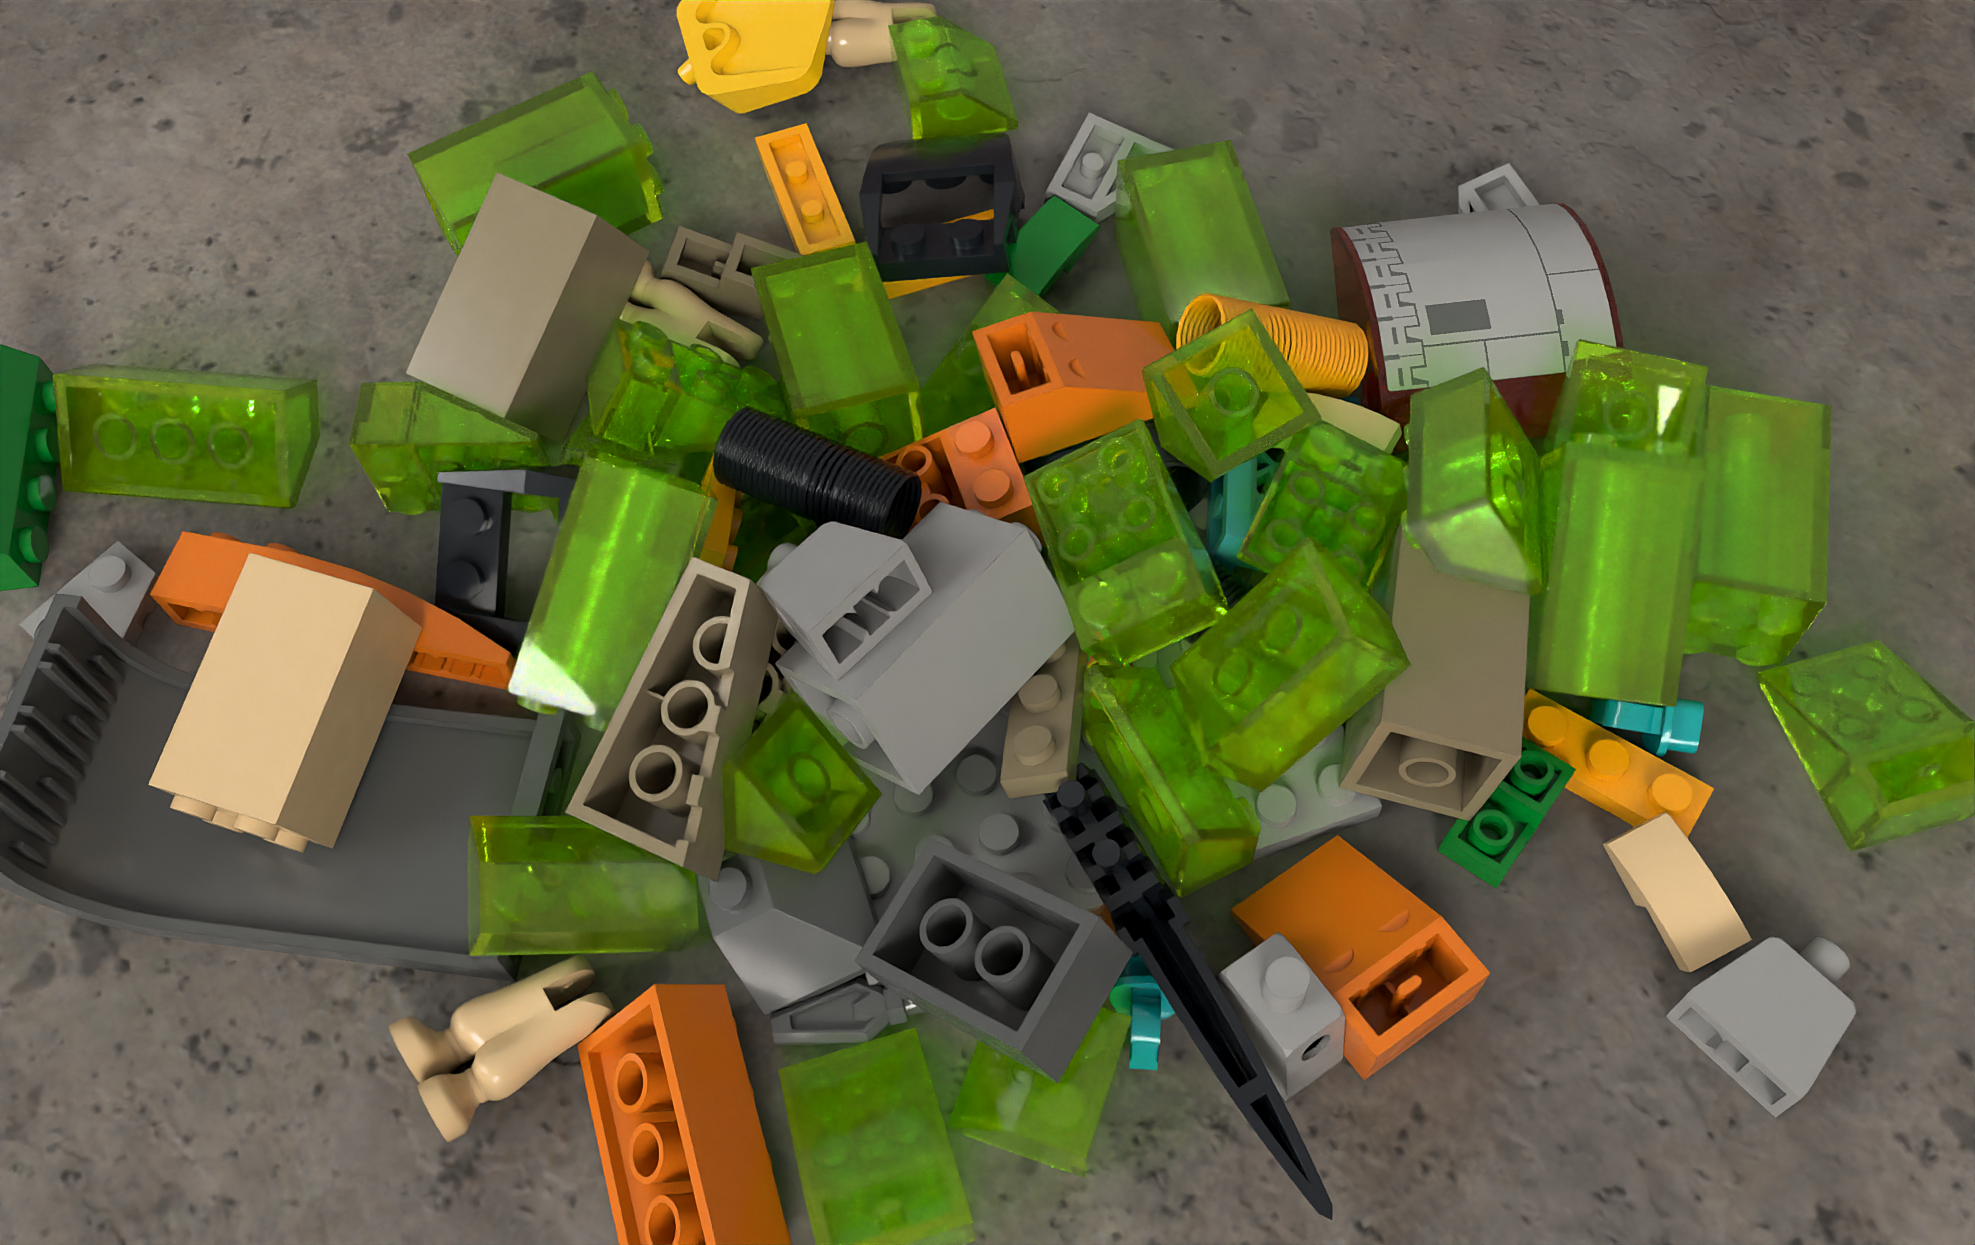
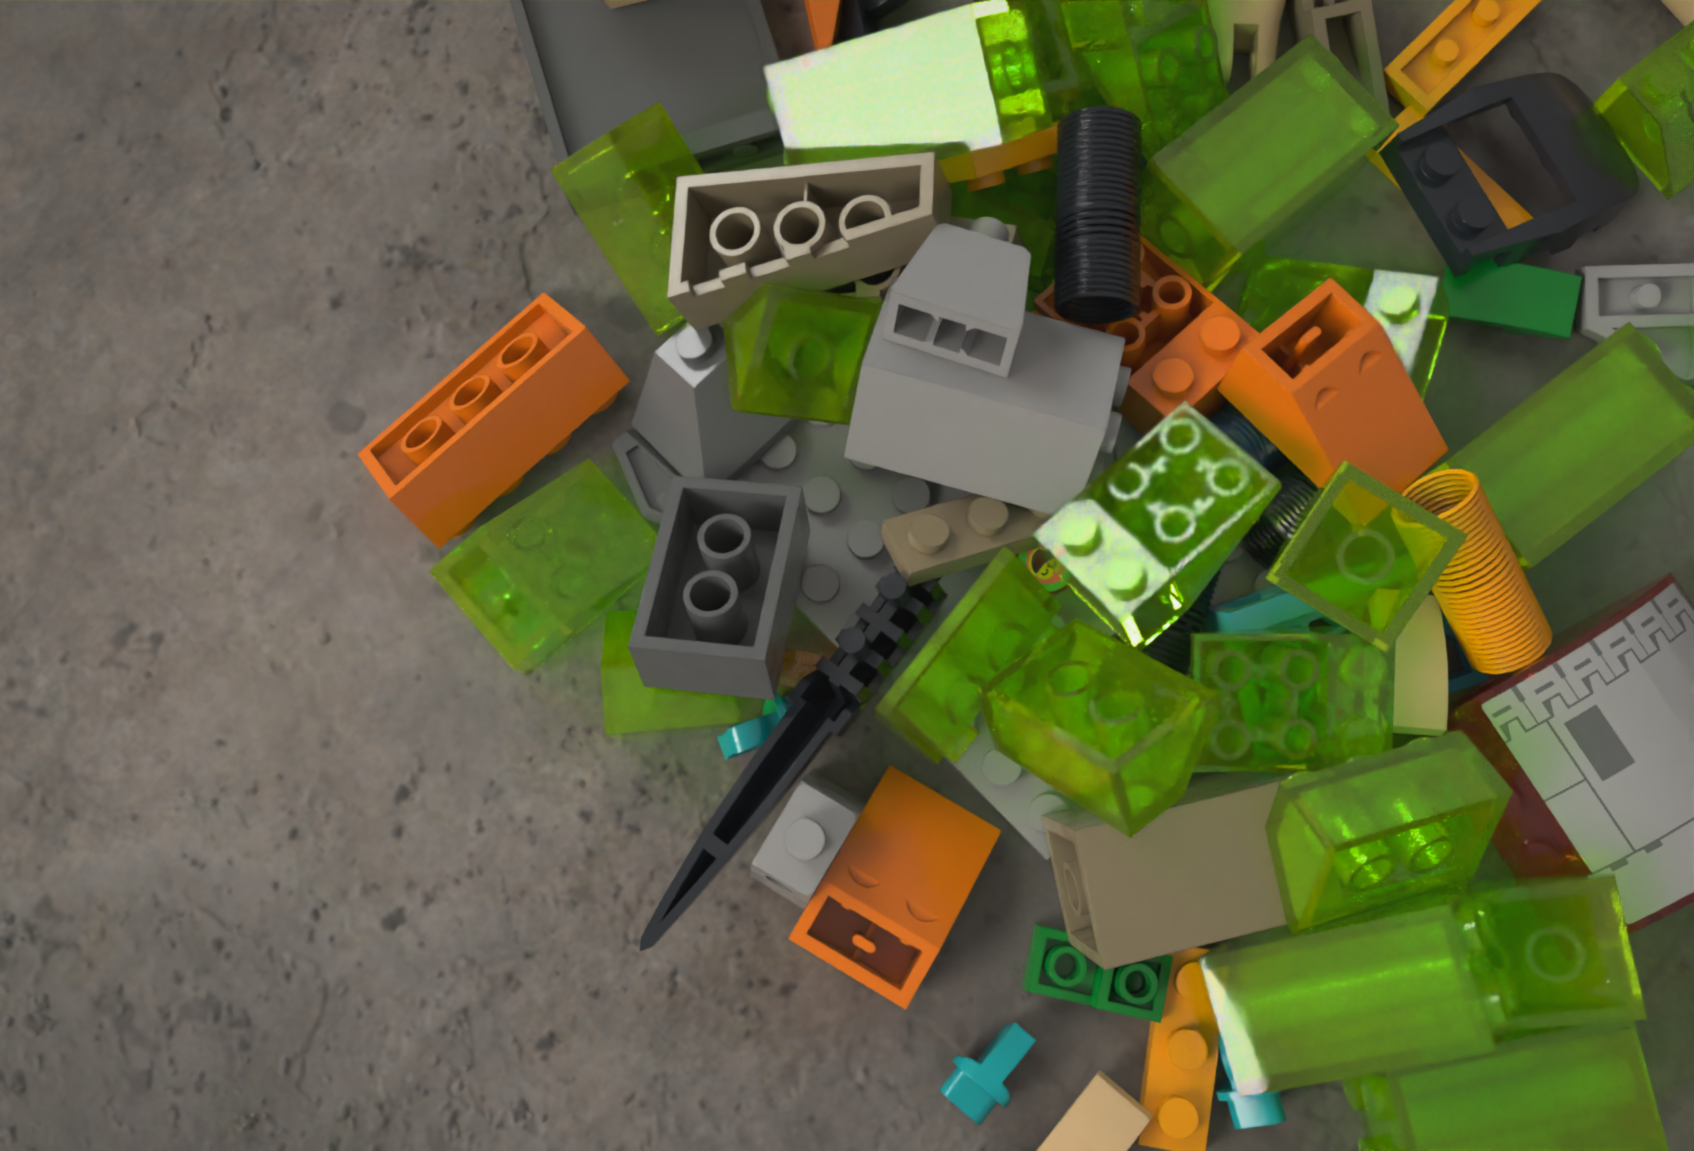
camera: 65 degrees right, 20 degrees up
(507, 1035) = (518, 239): tan piece -> none
(1577, 952) = (978, 1084): none -> teal piece

